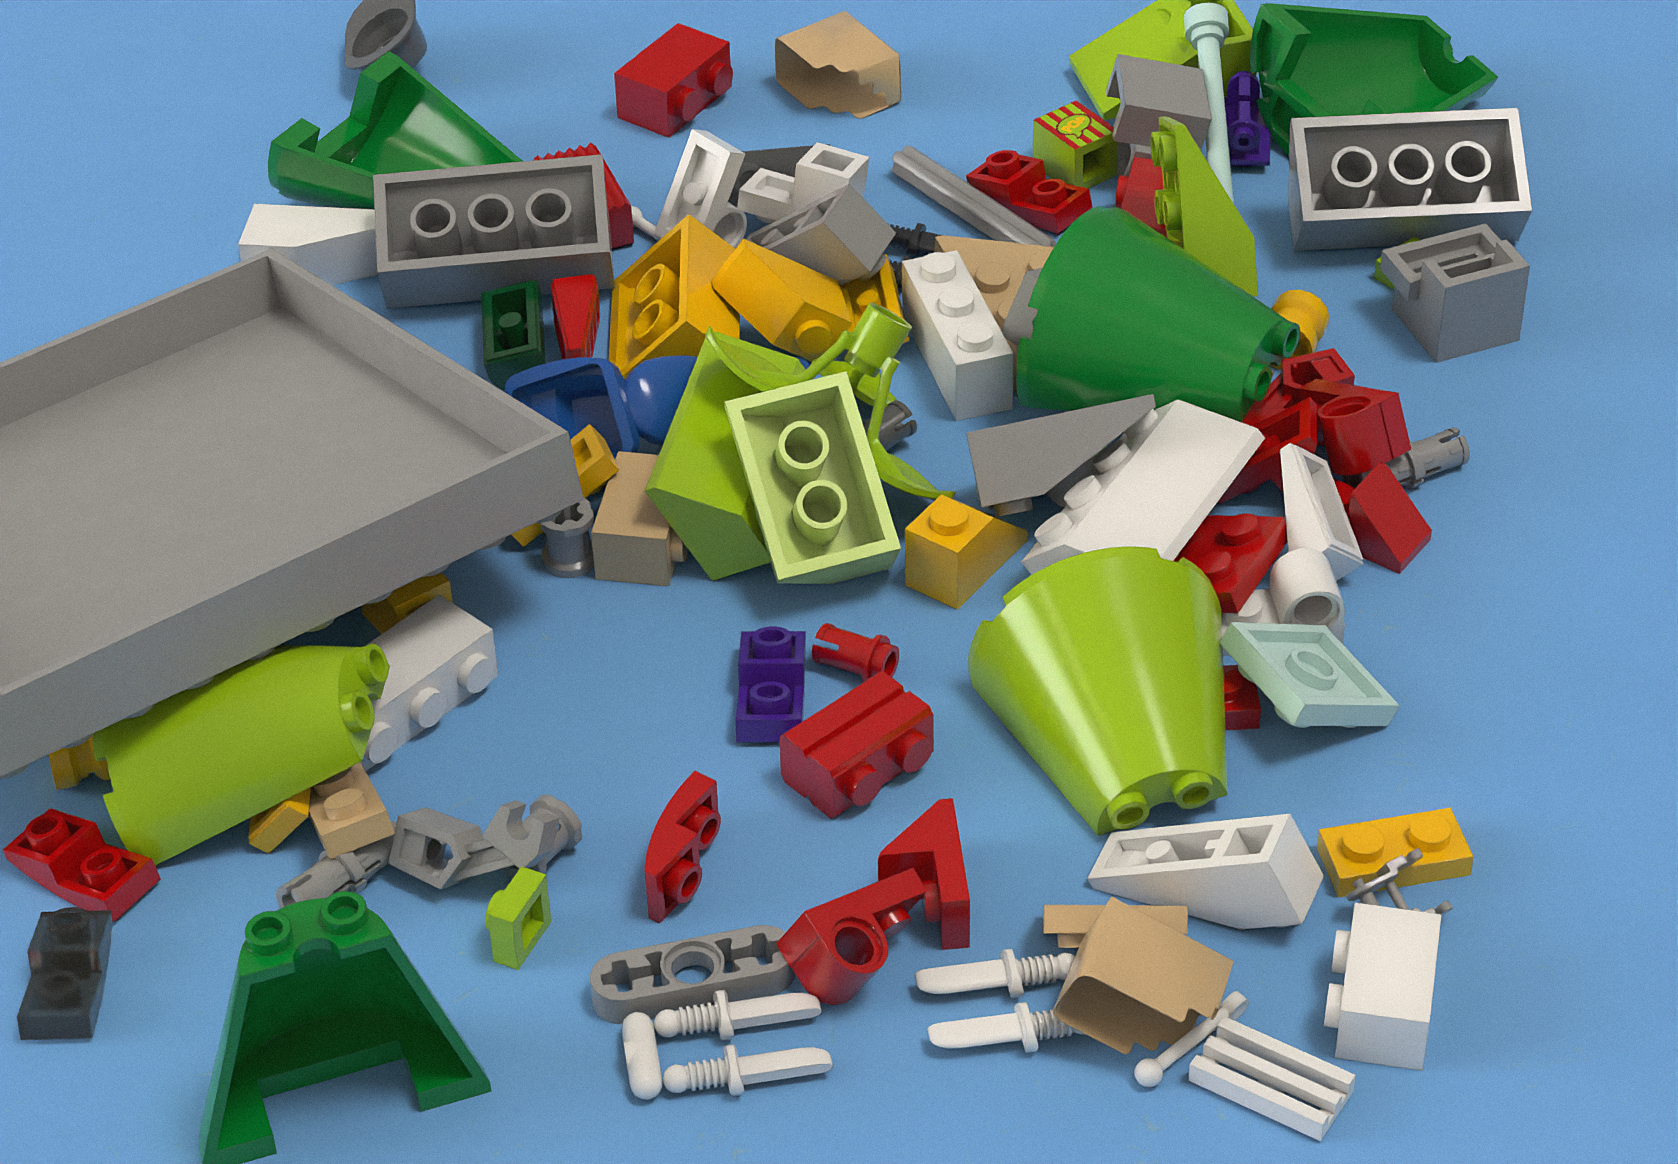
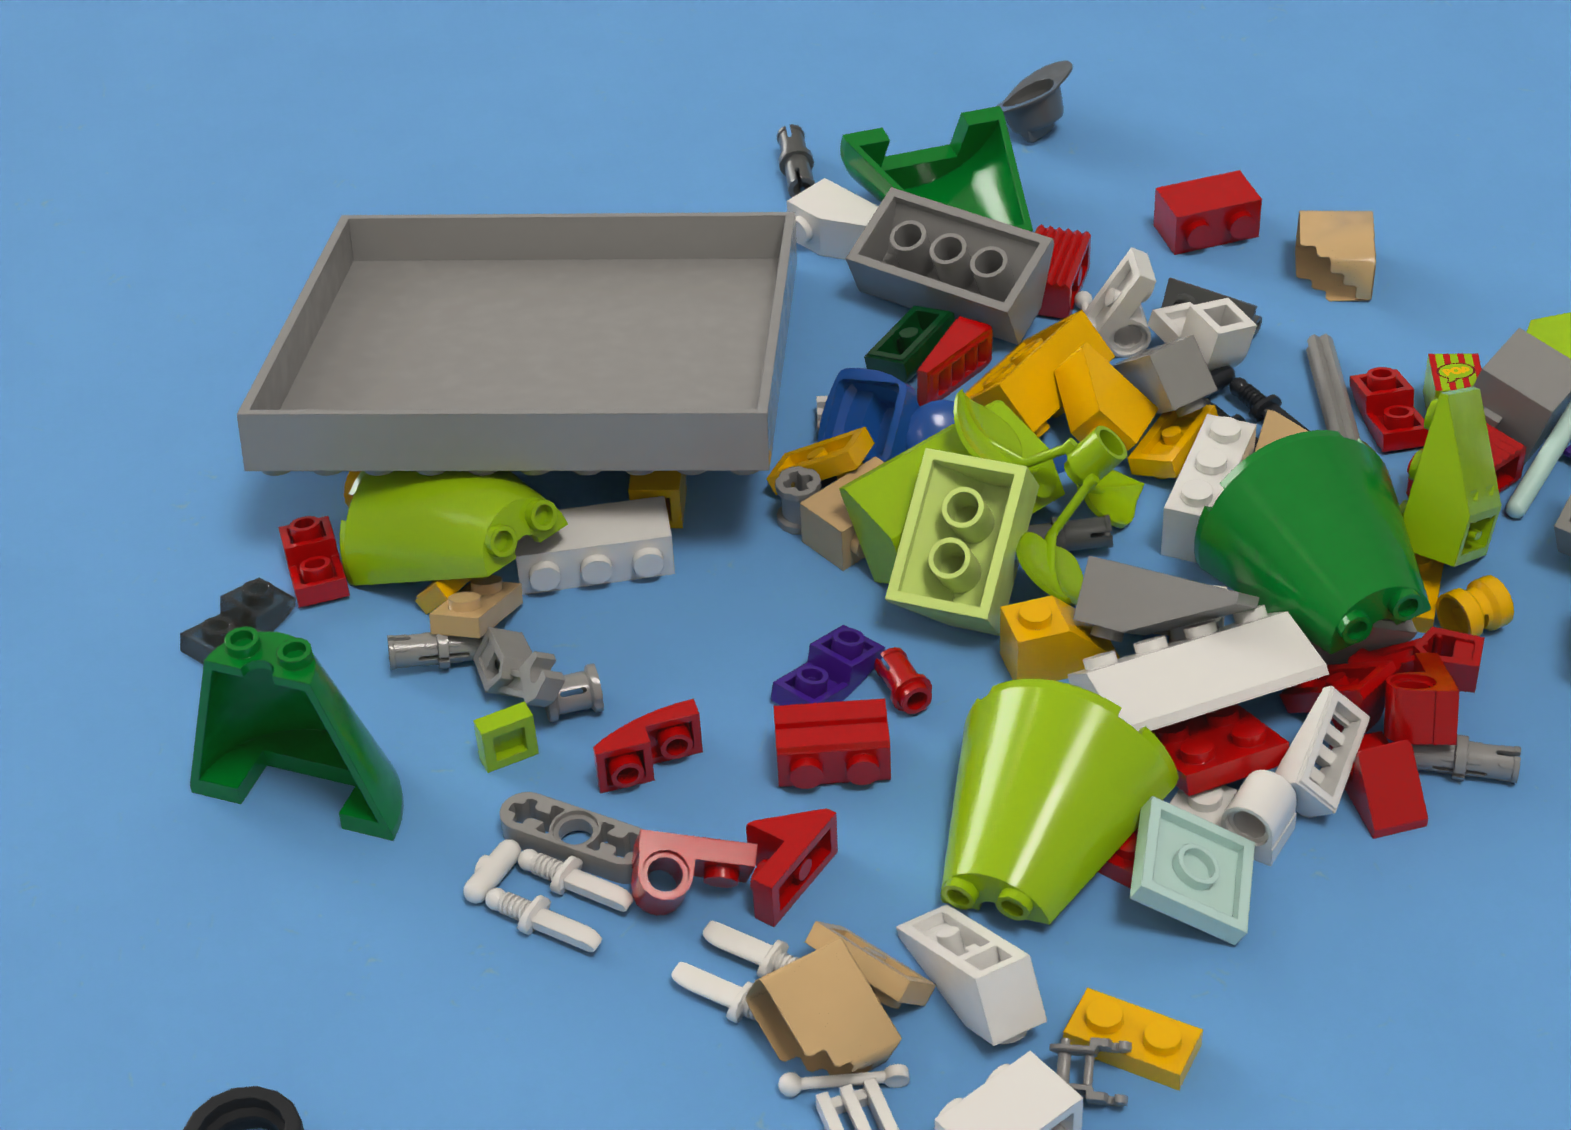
camera: 40 degrees right, 0 degrees up
(181, 206) = (795, 159): none -> dark grey pin

